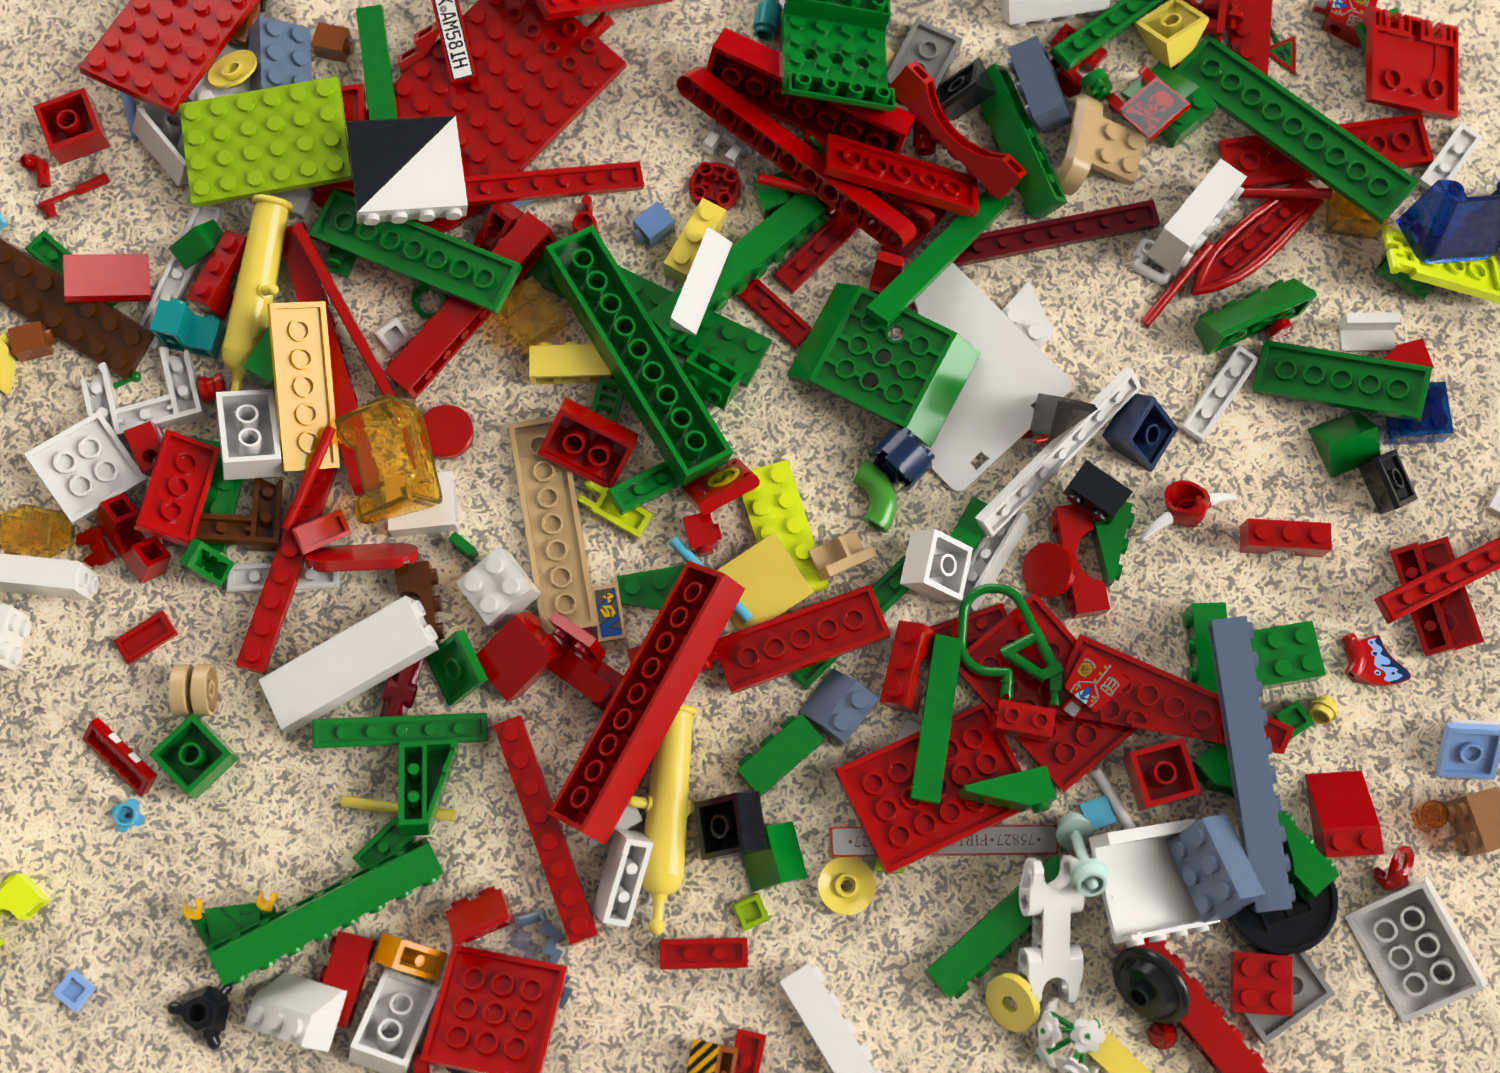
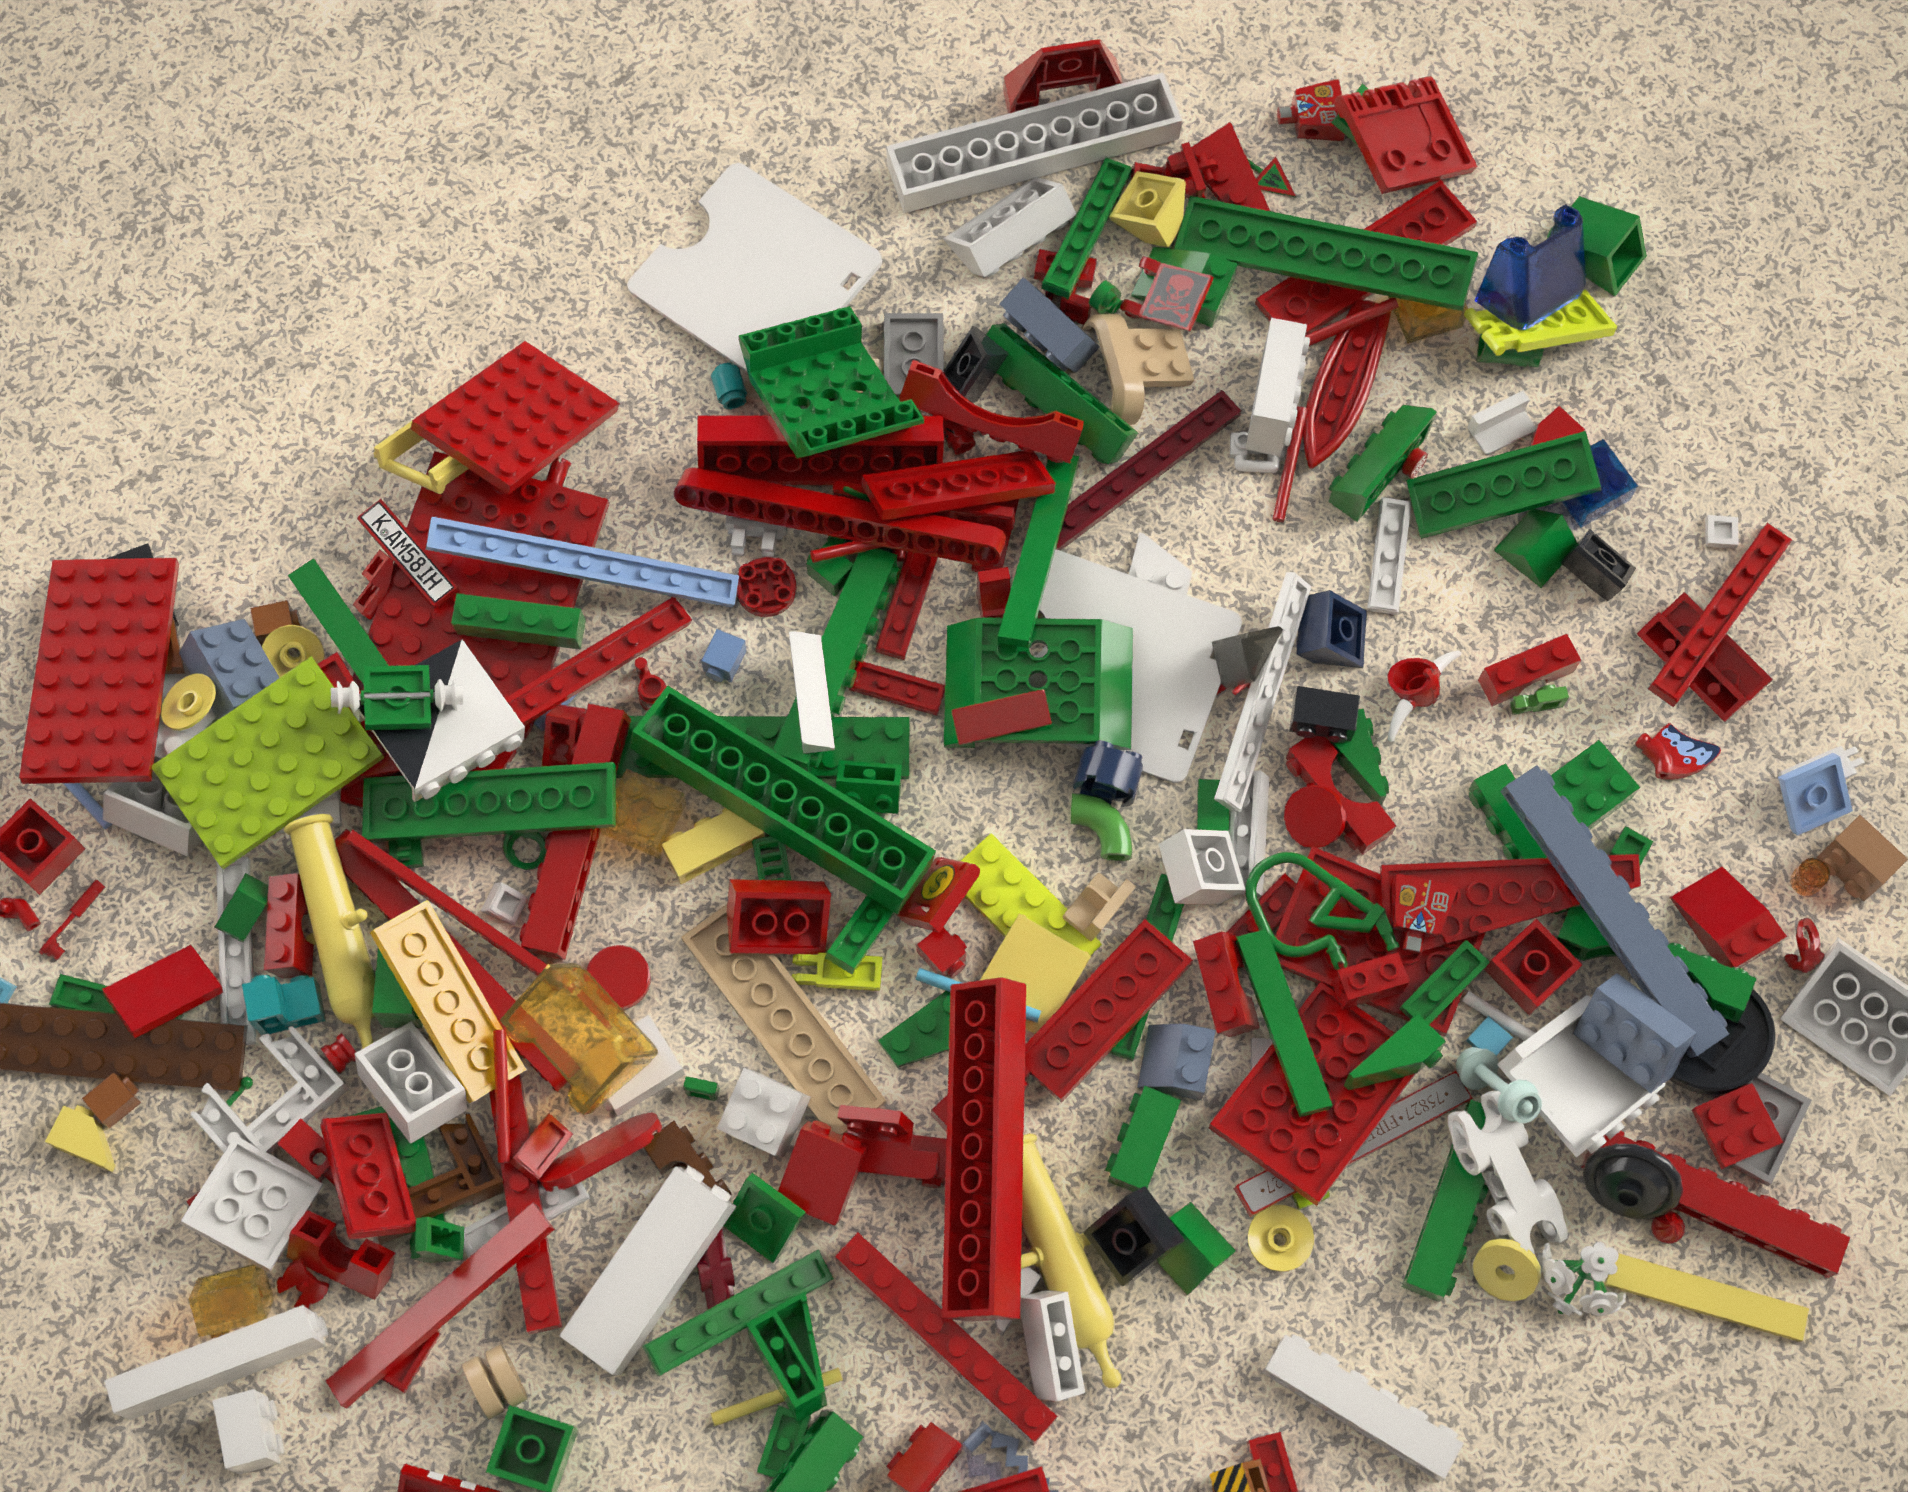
camera: 25 degrees left, 5 degrees down
(184, 612) = (439, 1305): none -> tile
(327, 58) = (288, 637): none -> light yellow dish
(379, 135) = (397, 697): none -> green plate
(507, 123) = (518, 621): none -> green brick
(578, 100) = (581, 562): none -> light blue plate
(609, 613) = (890, 1081): tile -> none
(685, 249) = (775, 653): light yellow brick -> none
(703, 953) = (1172, 1382): red plate -> none
(750, 912) = (1197, 1316): lime tile -> none
(838, 372) = (1001, 717): none -> red slope
(1083, 753) = (1445, 983): none -> green plate
(1284, 566) = (1543, 699): none -> bright green plate
(1323, 710) = (1654, 823): light yellow plate -> none
(1451, 156) = (1492, 212): white plate -> none

